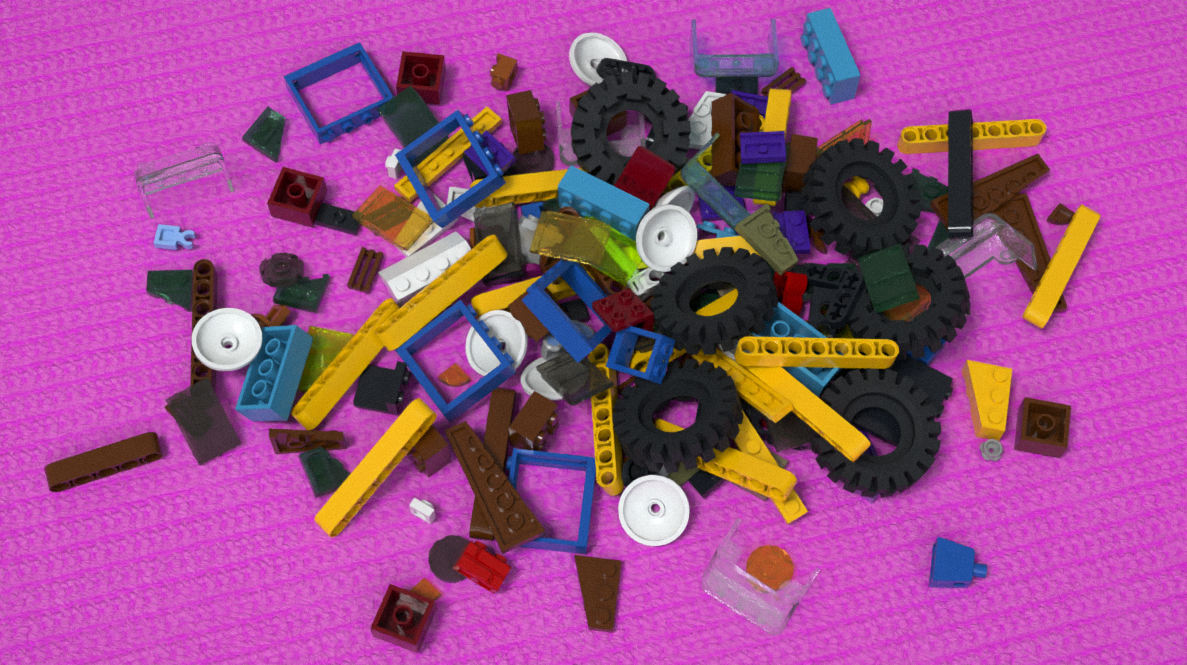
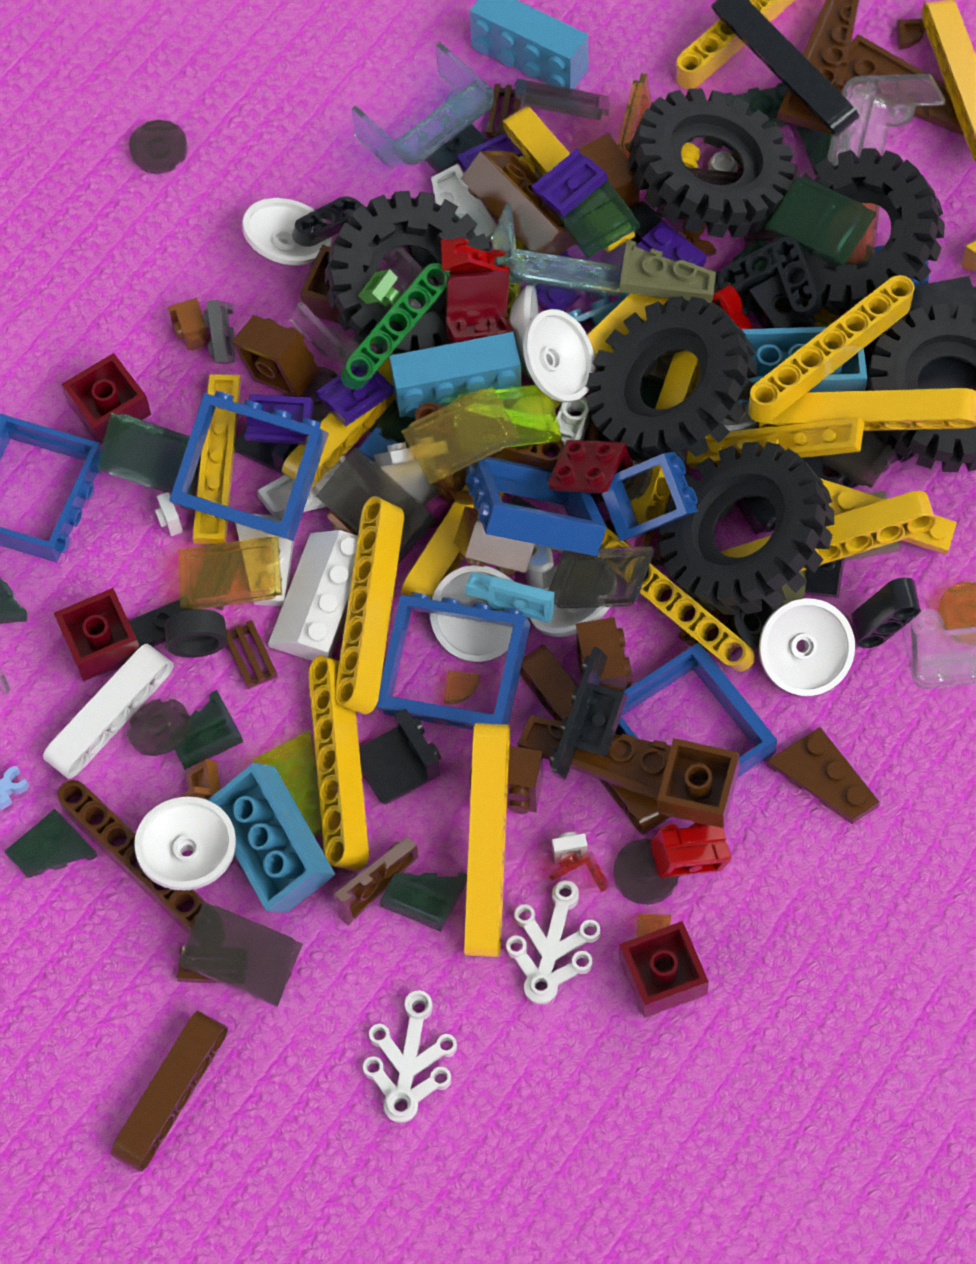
camera: 35 degrees left, 0 degrees up
(232, 552) = (409, 1063): none -> white plant
(266, 241) = (108, 711): none -> white beam
(344, 235) = (195, 633): none -> black tyre
(363, 555) = (551, 947): none -> white plant
(422, 525) = (573, 861): none -> clear red bracket
(490, 447) = (591, 719): none -> black bracket
(509, 531) = (698, 783): none -> reddish brown brick
(515, 348) = (503, 593): none -> medium azure hinge
(516, 82) = (222, 334): none -> dark grey wing
(543, 172) = (351, 404): none -> dark purple plate
(581, 158) = (388, 338): none -> green beam
(598, 124) = (380, 289): none -> bright green tile
(663, 146) = (463, 259): none -> red hinge
(713, 527) = (886, 612): none -> black beam
(816, 101) = (561, 99): none -> clear smoke piece

